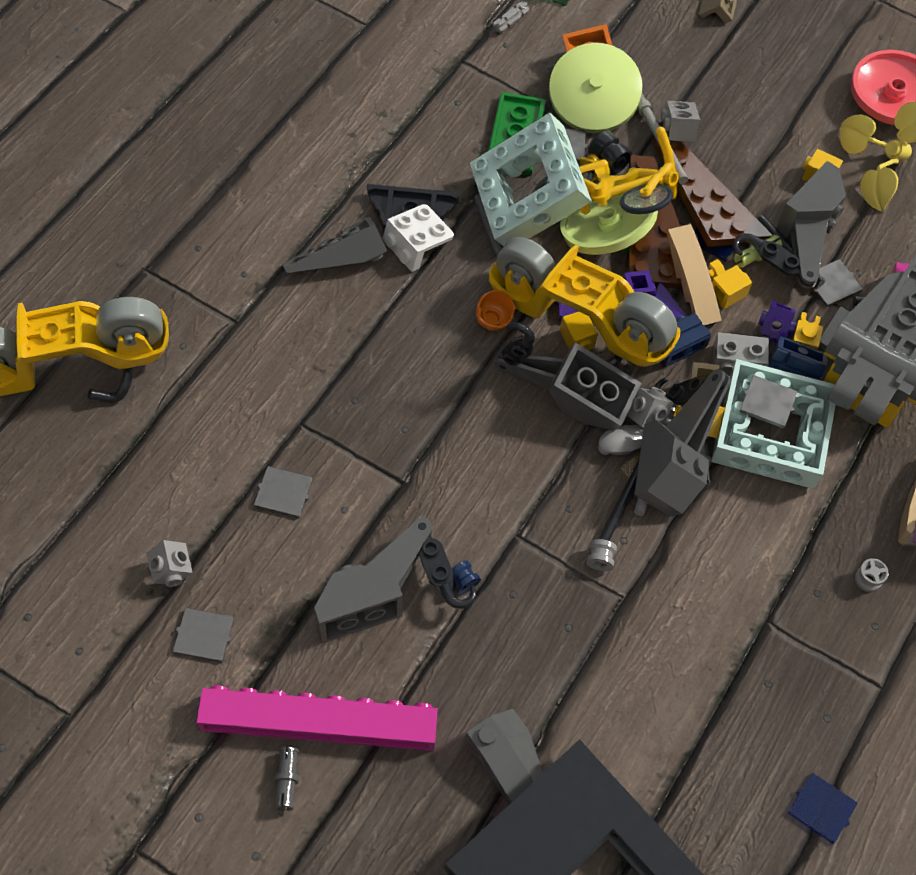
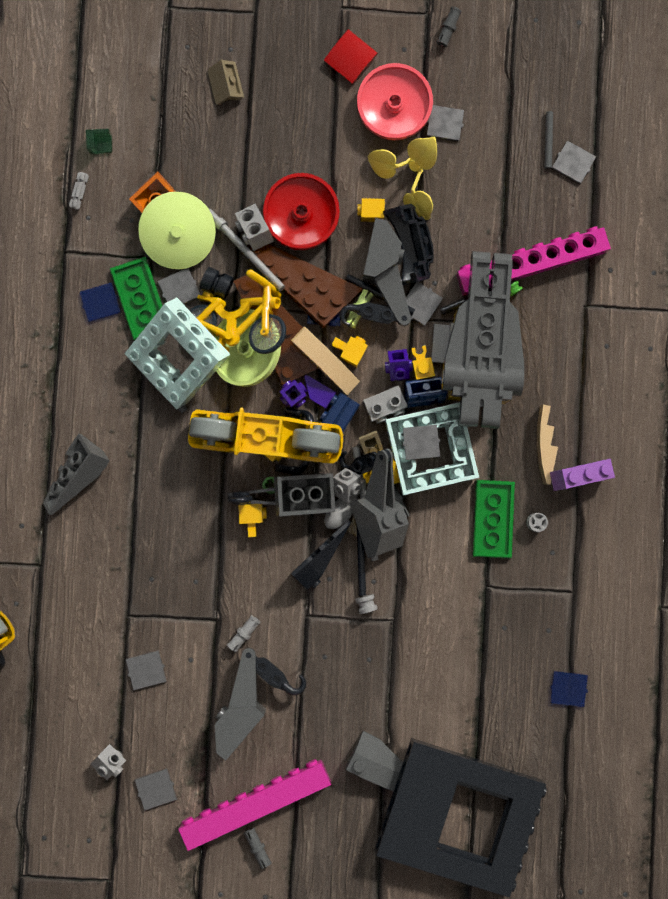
camera: 30 degrees left, 25 degrees up
(394, 200) = (104, 410): black wing -> none
(415, 233) = (121, 432): white bracket -> none
(429, 509) = (243, 633): none -> light grey pin
(464, 577) = (290, 667): dark blue wheel -> none
(471, 117) = (100, 302): none -> clear blue piece
(495, 310) = (207, 464): orange hair -> none
(515, 388) = (250, 515): none -> yellow brick
(559, 474) = (313, 567): none -> black wedge
(742, 132) = (301, 211): none -> red dish
(814, 546) = (493, 519): none -> green tile
(859, 218) = (415, 242): none -> black windscreen
(865, 35) = (350, 56): none -> red slope

